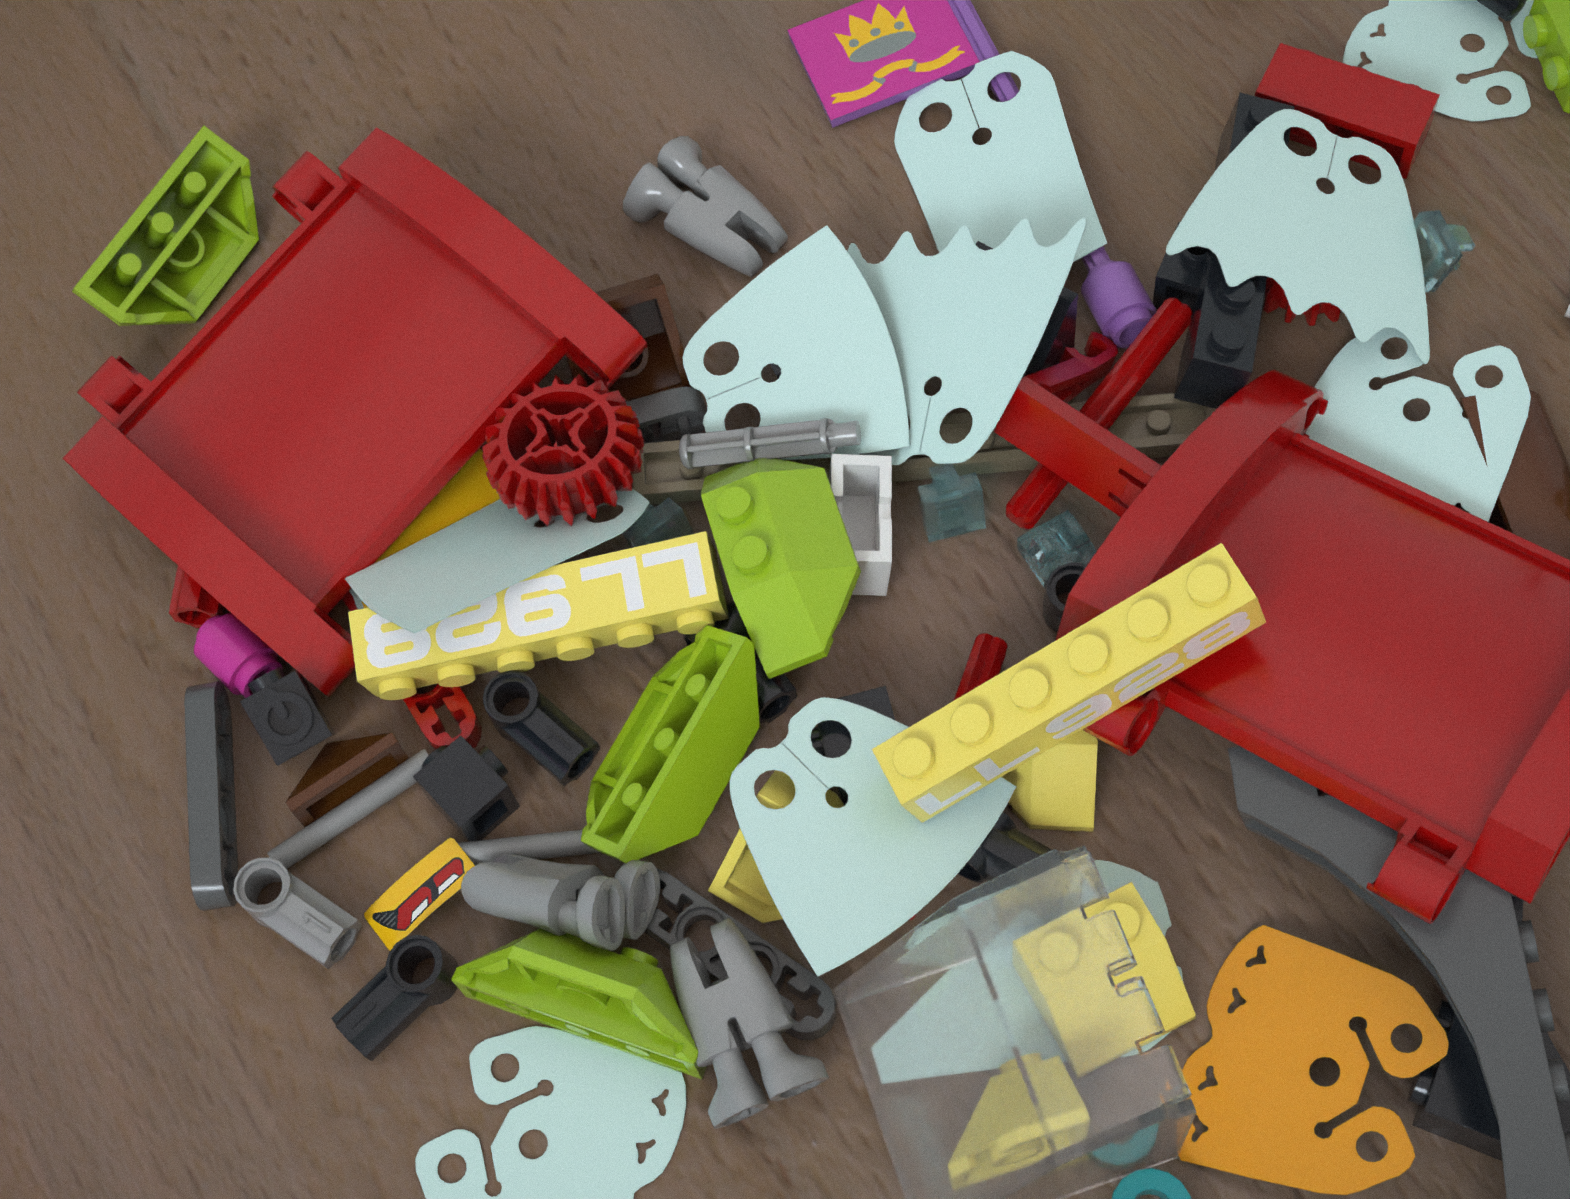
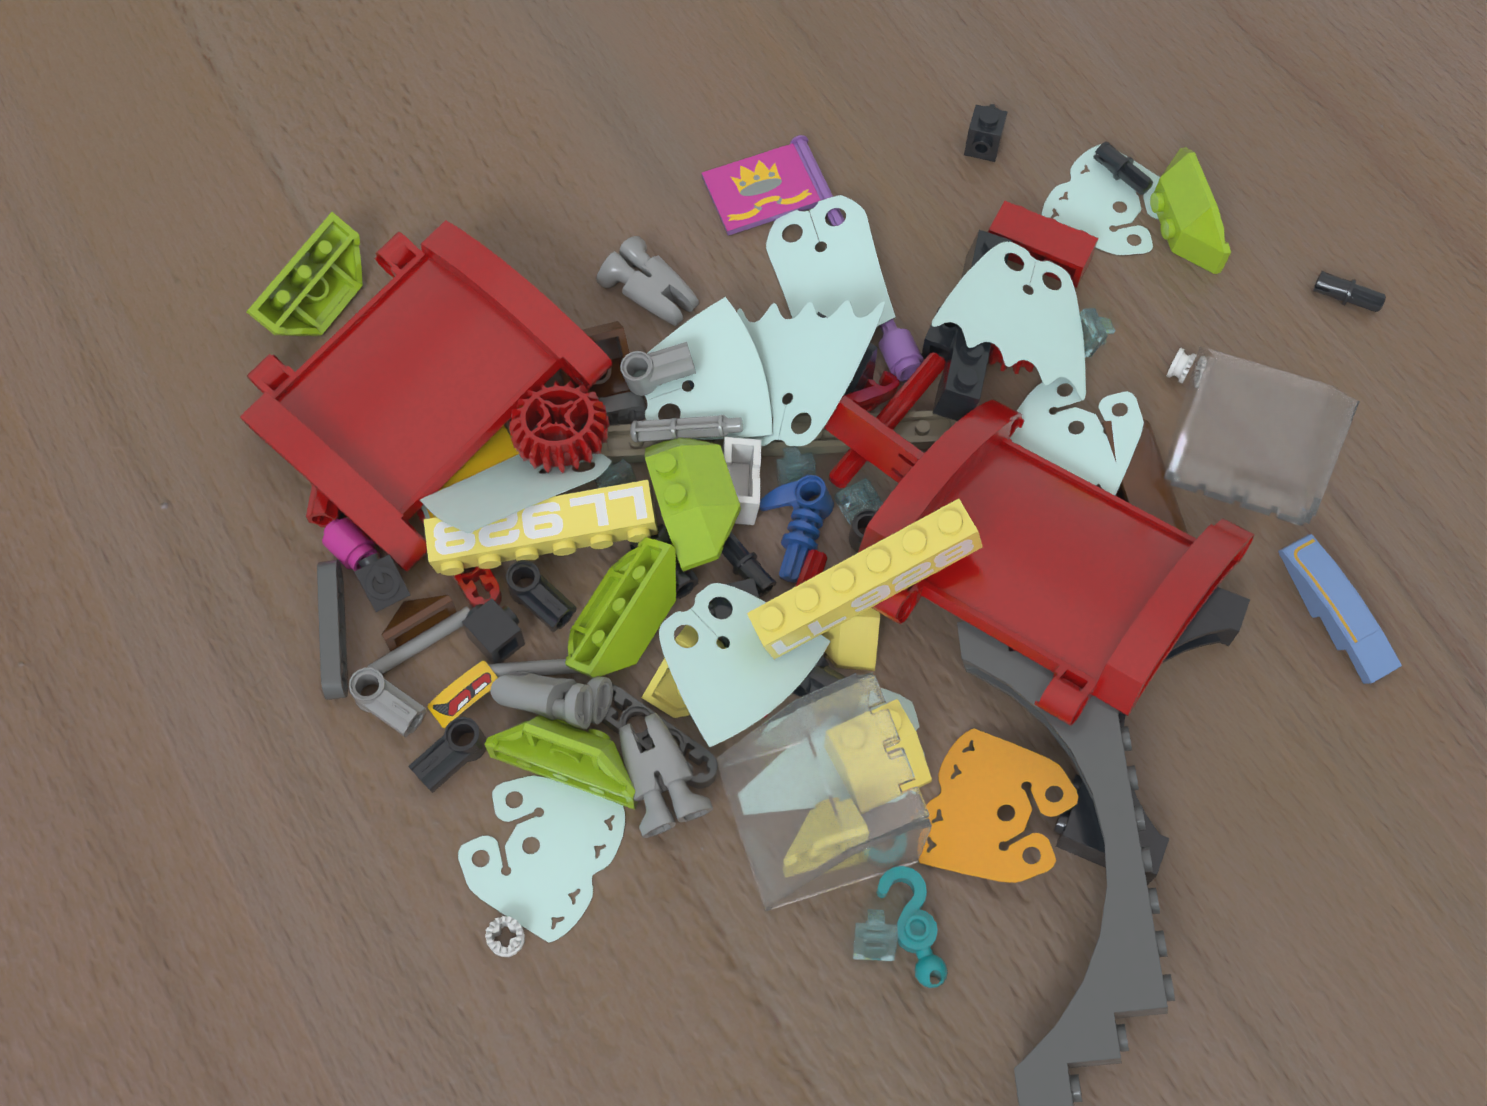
camera: 10 degrees left, 0 degrees up
(723, 344) = (661, 368): none -> light grey piece
(876, 663) = (747, 565): none -> black axle
(971, 583) = (806, 518): none -> blue piece

